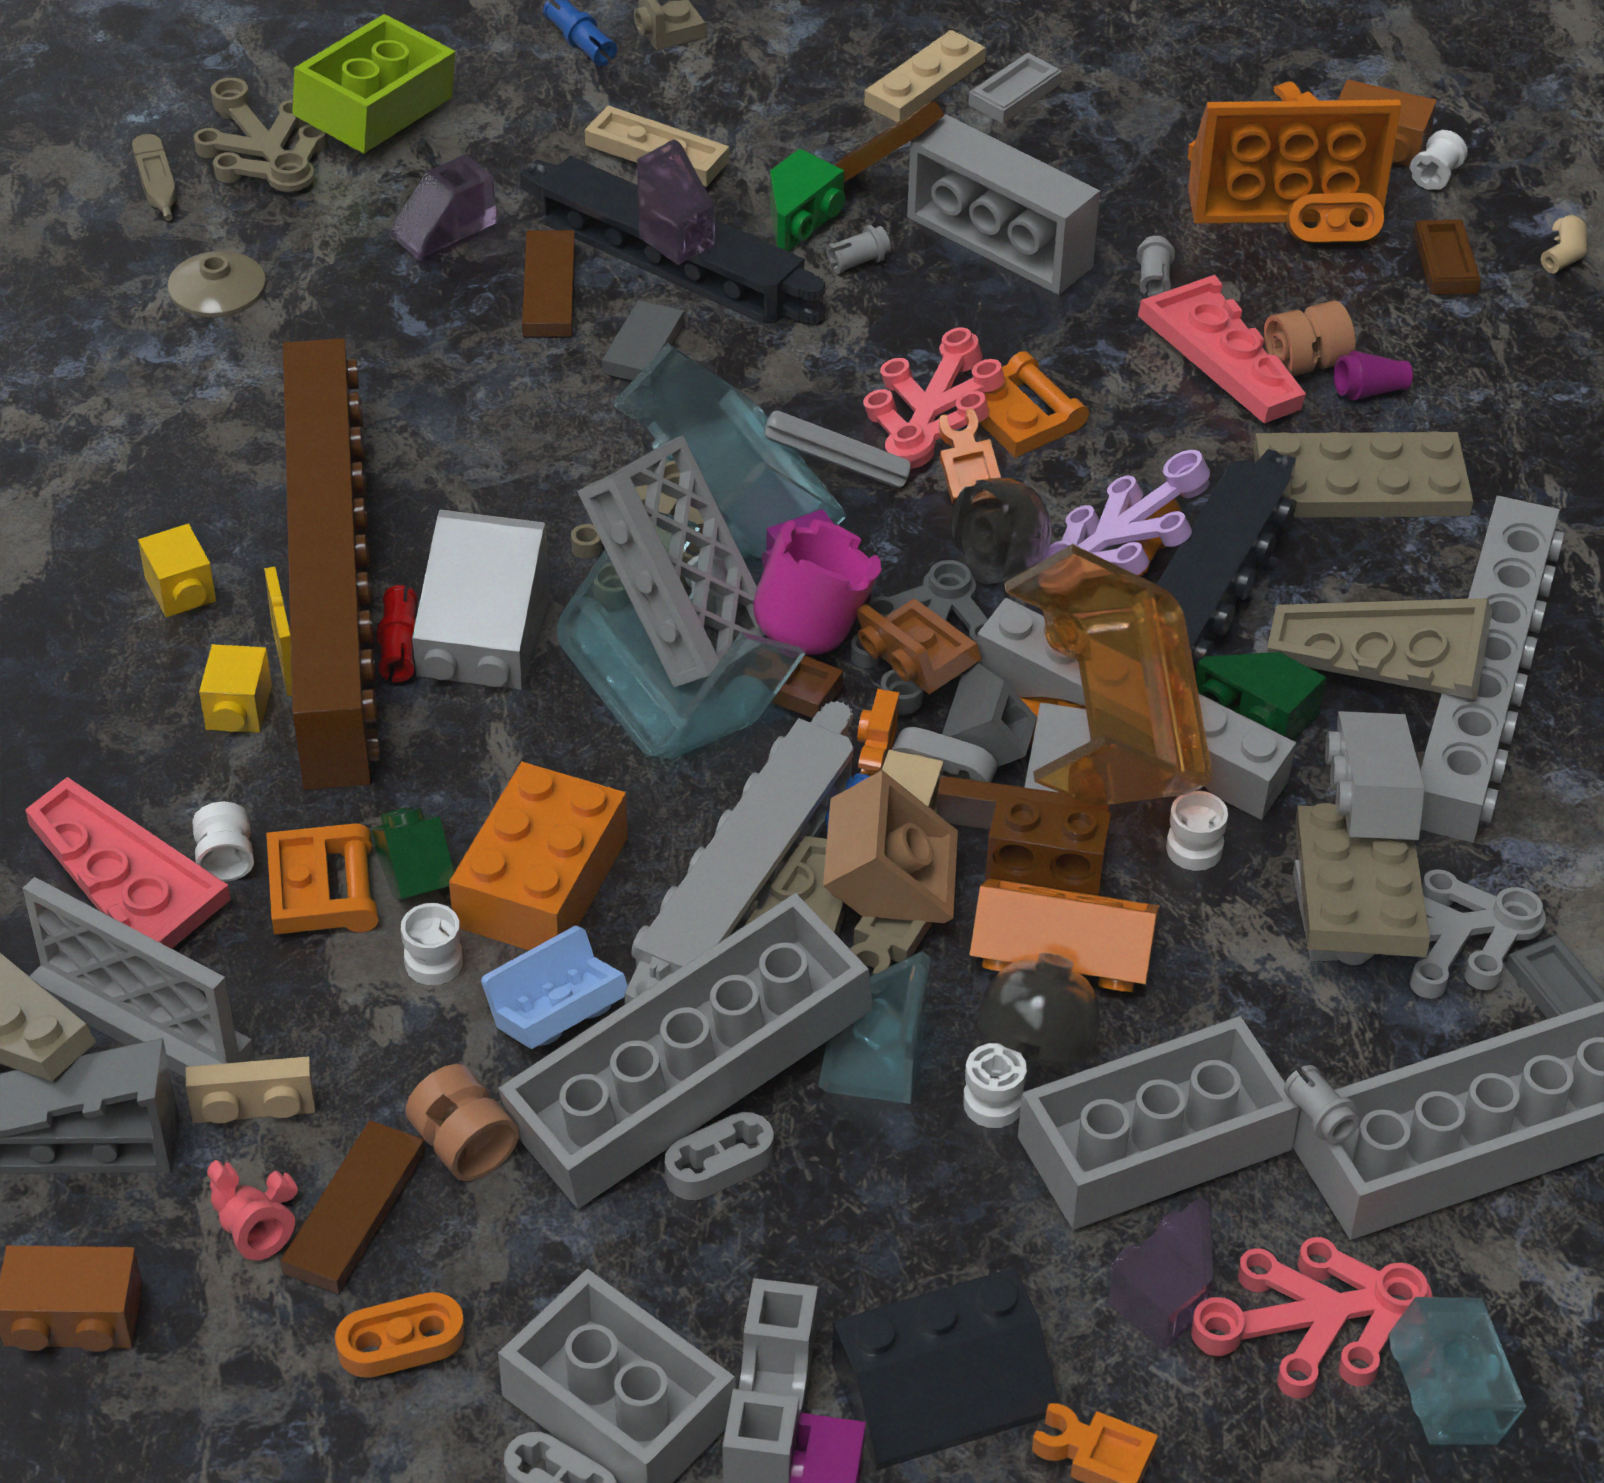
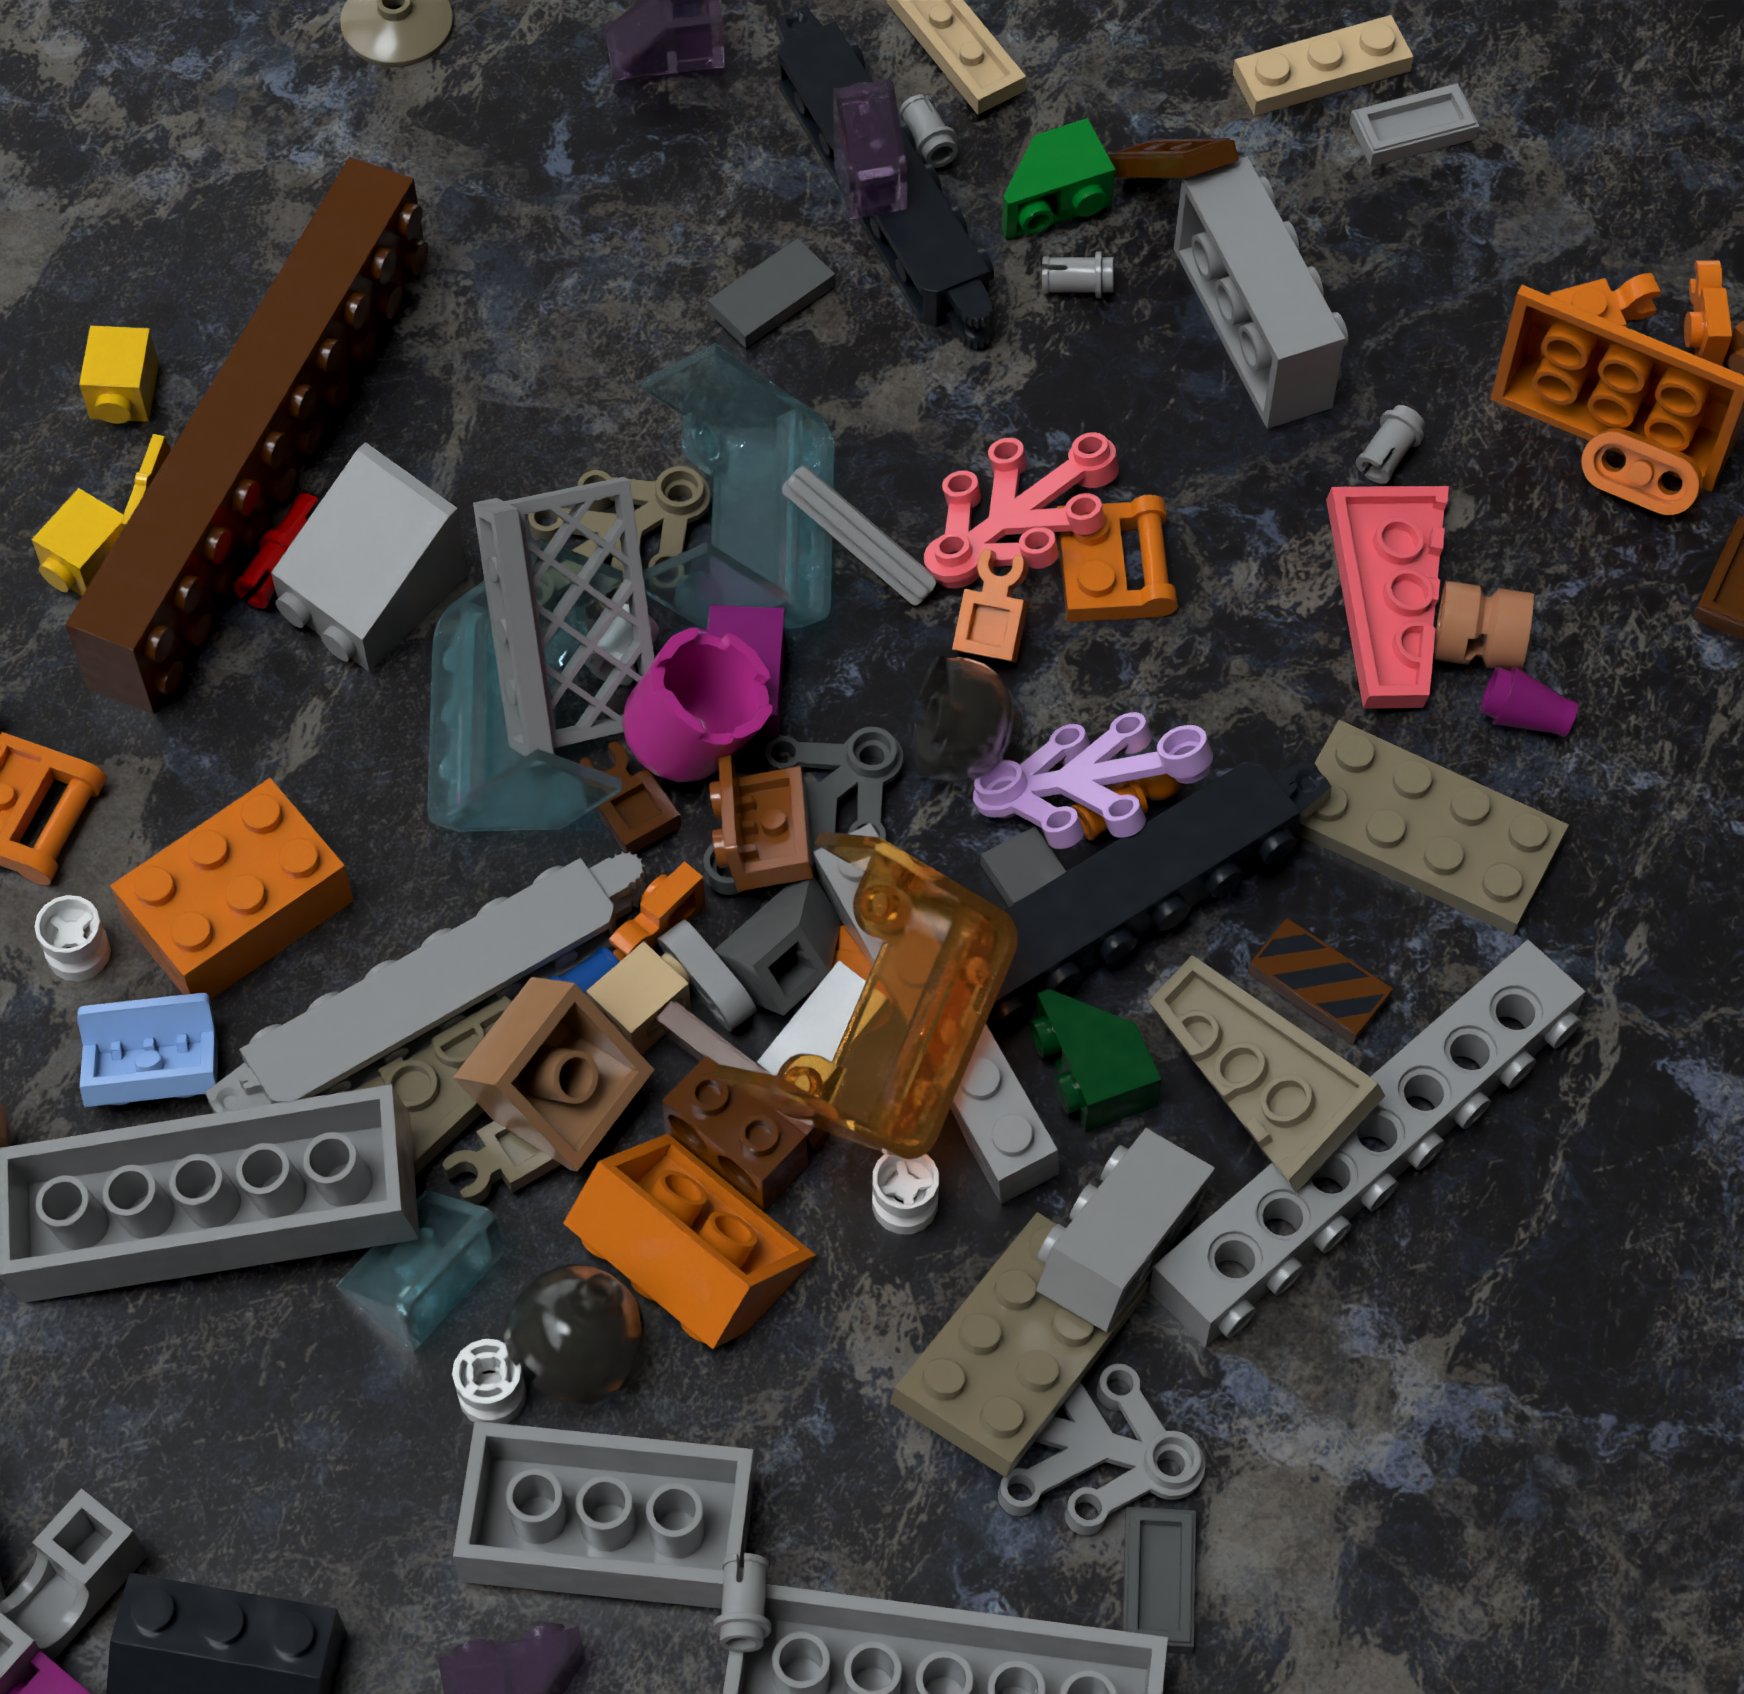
camera: 30 degrees right, 15 degrees up
(412, 852) = (120, 821): dark green slope -> none
(548, 283) = (725, 171): reddish brown tile -> none
(719, 1156) = (186, 1331): light grey beam -> none
(1365, 583) = (1320, 980): none -> reddish brown tile

